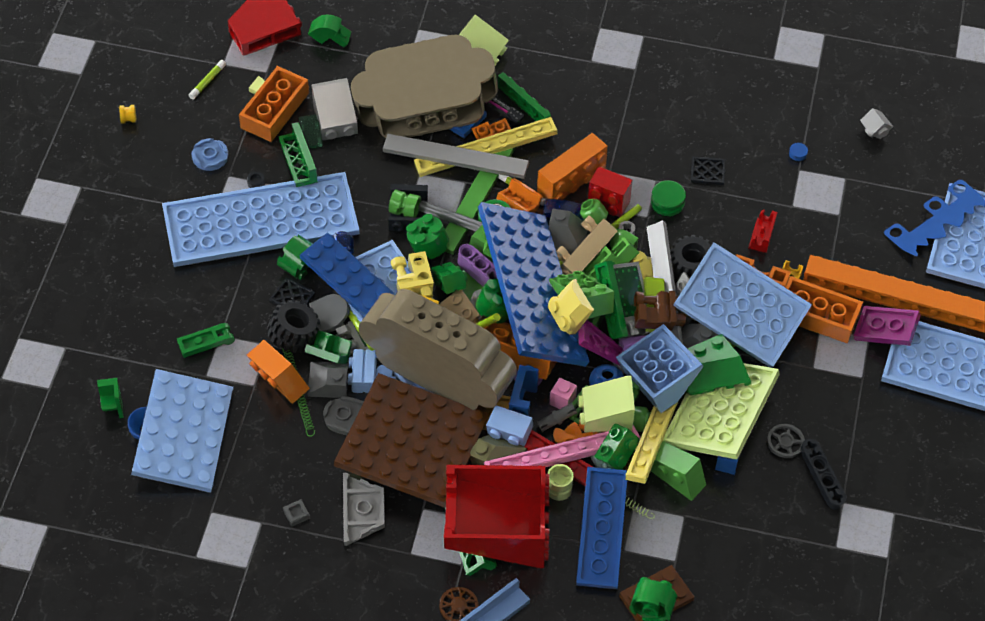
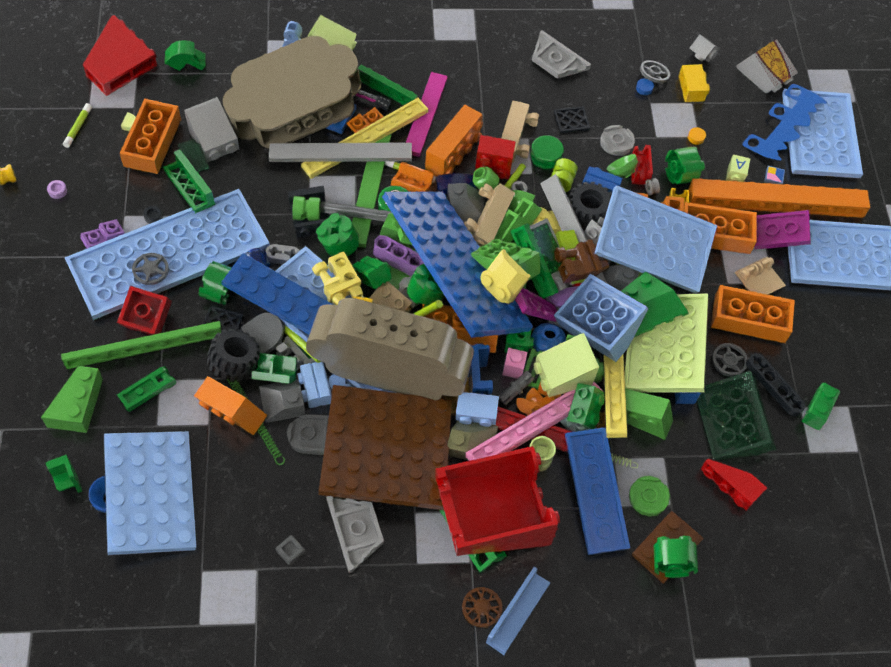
camera: 20 degrees left, 5 degrees up
(138, 336) = (75, 401): none -> bright green wedge
(172, 137) = (57, 189): none -> lavender tile
(207, 187) = (106, 231): none -> medium lavender slope
(210, 154) = (99, 198): medium blue tile -> none
(210, 299) = (141, 345): none -> bright green tile
(222, 268) = (144, 311): none -> red brick
(238, 230) = (150, 268): none -> dark grey wheel
(370, 241) = (283, 253): none -> light grey beam
(442, 27) = (292, 33): none -> medium blue leg
(564, 123) = (431, 99): none -> dark pink tile
(575, 374) = (519, 341): none -> green brick
(643, 165) = (515, 124): none -> tan brick
(655, 547) = (649, 496): none -> bright green tile
(677, 223) = (566, 171): none -> lime wheel
(713, 103) = (557, 58): none -> light grey wing
(715, 235) = (606, 179): none -> blue brick
(742, 229) = (624, 166): none -> bright green piece
(748, 201) = (617, 140): none -> light grey tile
(749, 557) = (737, 483): none -> red slope
(767, 254) = (652, 186): none -> light grey bush
(769, 495) = (735, 418): none -> clear green slope
(806, 239) = (683, 165): none -> green brick
(814, 138) = (654, 72): none -> dark grey wheel
(823, 400) = (753, 314): none -> orange brick
(835, 213) = (696, 136): none -> light orange tile
(848, 369) = (760, 277): none -> tan hinge
(851, 158) = (693, 83): none -> yellow brick
(861, 504) = (820, 406): none -> green brick
(865, 255) = (738, 168): none -> yellowish green brick
(904, 270) = (774, 175): none -> tile
(940, 157) = (768, 67): none -> slope

